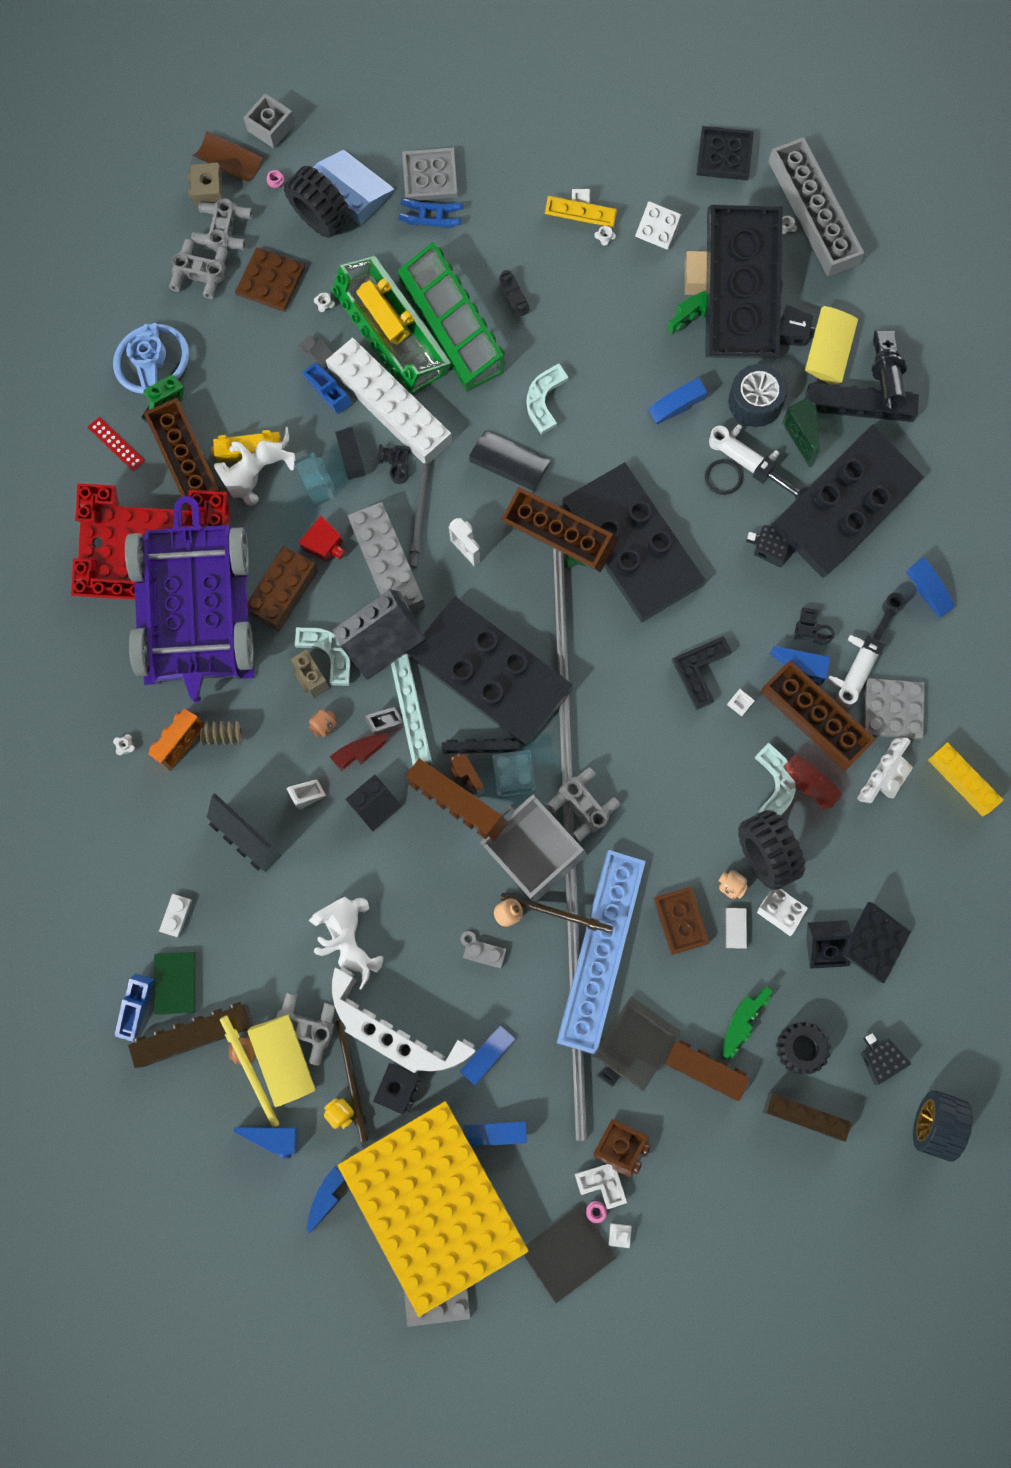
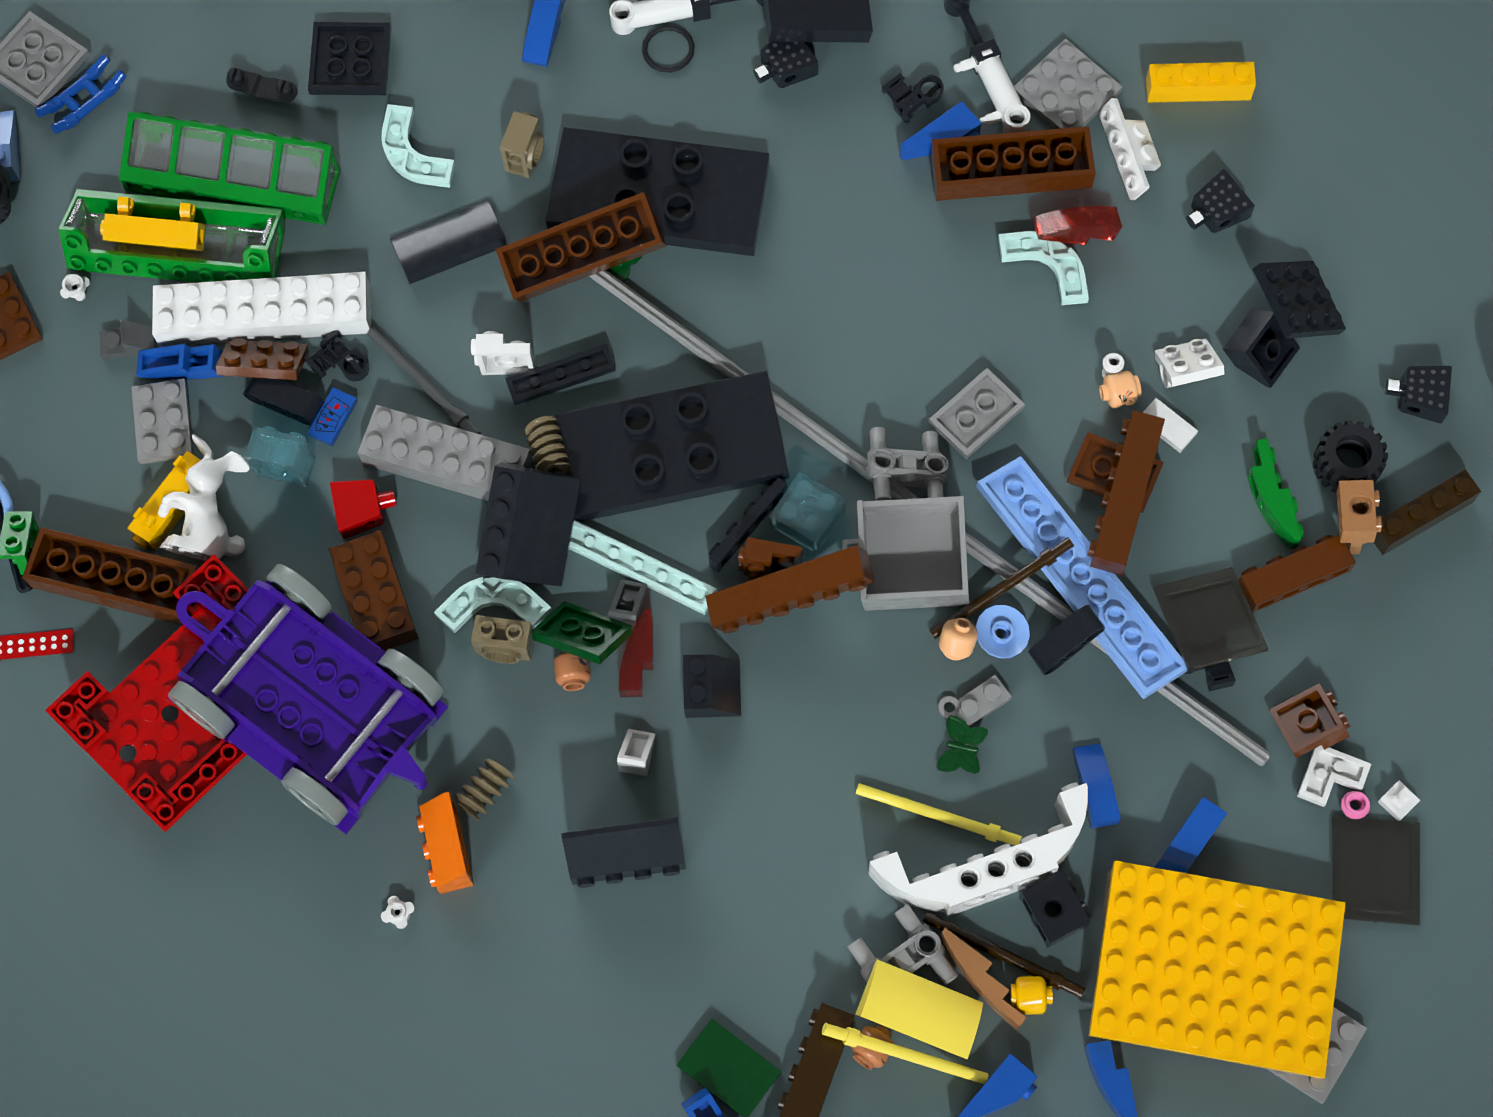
camera: 50 degrees left, 5 degrees down
(175, 915) = (650, 1007): white plate -> none
(288, 406) = (162, 421): none -> light grey plate
(329, 1071) = (975, 969): none -> medium nougat slope
(342, 924) = (822, 825): white animal -> none
(344, 711) = (582, 632): none -> dark green plate
(360, 425) = (262, 359): none -> reddish brown plate
(362, 486) = (332, 416): none -> blue tile
(415, 1019) = (991, 831): none -> light yellow bar
(430, 606) = (545, 445): none -> dark tan piece
(450, 964) = (964, 746): none -> dark green piece
(483, 580) = (560, 374): none -> black plate
(543, 935) = (1010, 623): none -> light blue dish
(555, 973) = (1066, 639): none -> black beam
(569, 322) = (349, 58): none -> black plate
(594, 449) = (522, 144): none -> dark tan brick
(650, 816) = (976, 413): none -> light grey plate
(670, 937) = (1126, 493): none -> reddish brown brick
(688, 669) = (848, 249): black plate -> none
(740, 702) = (931, 227): white plate -> none
(746, 866) = (1112, 364): none -> white pin
(771, 849) = (1120, 315): black tyre -> none
(773, 1071) = (1357, 513): none -> medium nougat brick
(897, 850) = (1220, 204): none -> black torso

